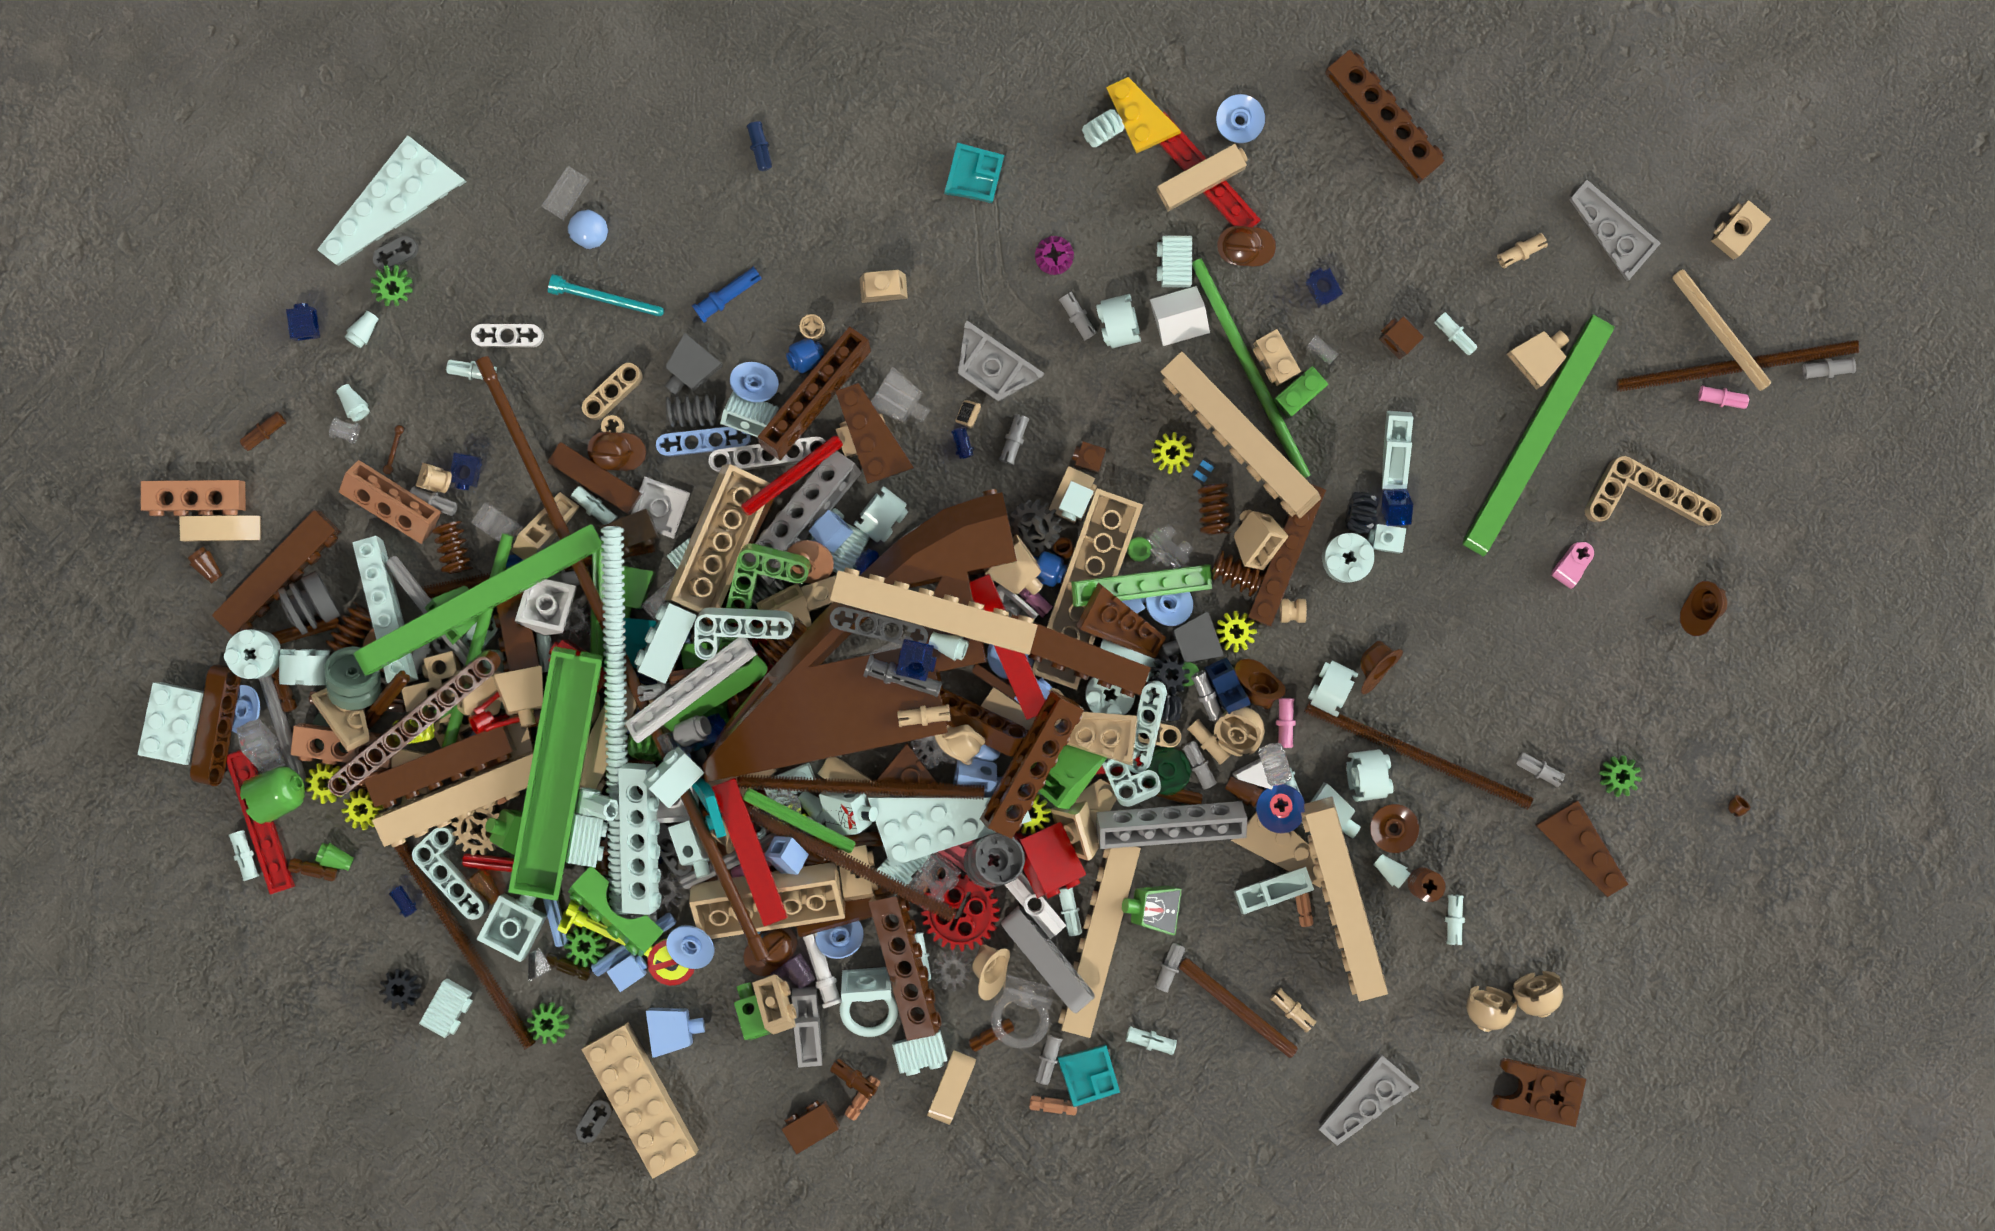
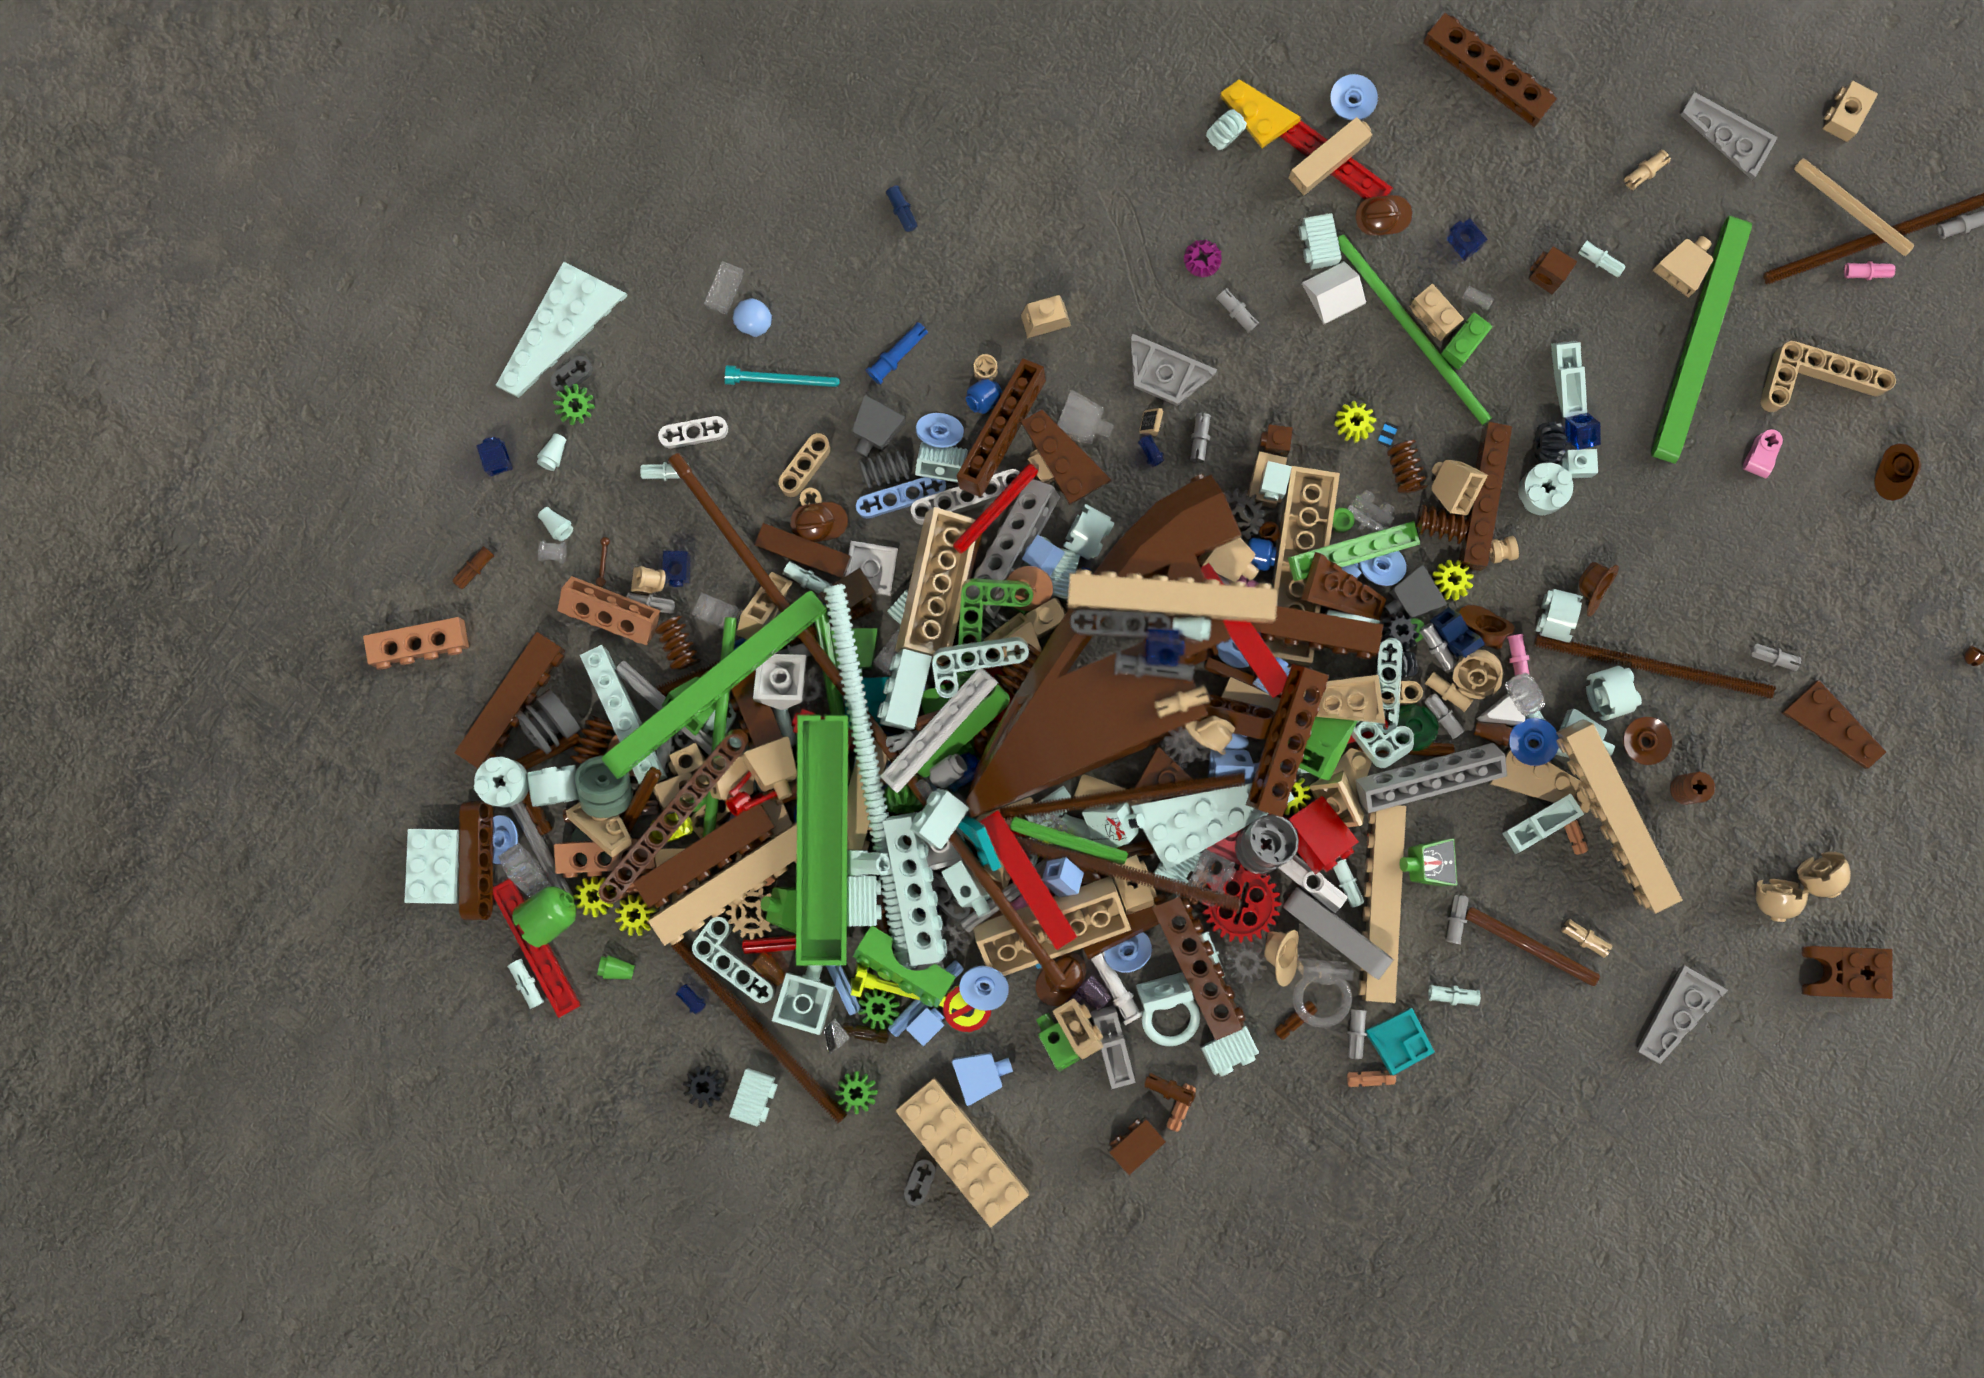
camera: 10 degrees left, 5 degrees down
(205, 564) = (439, 706): reddish brown cone -> none
(220, 528) = (447, 668): tan slope -> none
(312, 869) = (596, 985): reddish brown axle -> none
(951, 1087) = (1267, 1080): tan beam -> none
(974, 173) = (1111, 195): teal plate -> none
(1096, 699) = (1329, 664): light aqua brick -> none
(1119, 321) = (1280, 306): light aqua brick -> none
(1241, 435) = (1421, 388): tan brick -> none
(1274, 802) = (1538, 730): coral bush -> none
(1392, 871) = (1654, 783): light aqua cone -> none
(1455, 919) = (1725, 819): light aqua pin -> none
(1623, 784) = (1854, 657): bright green gear -> none

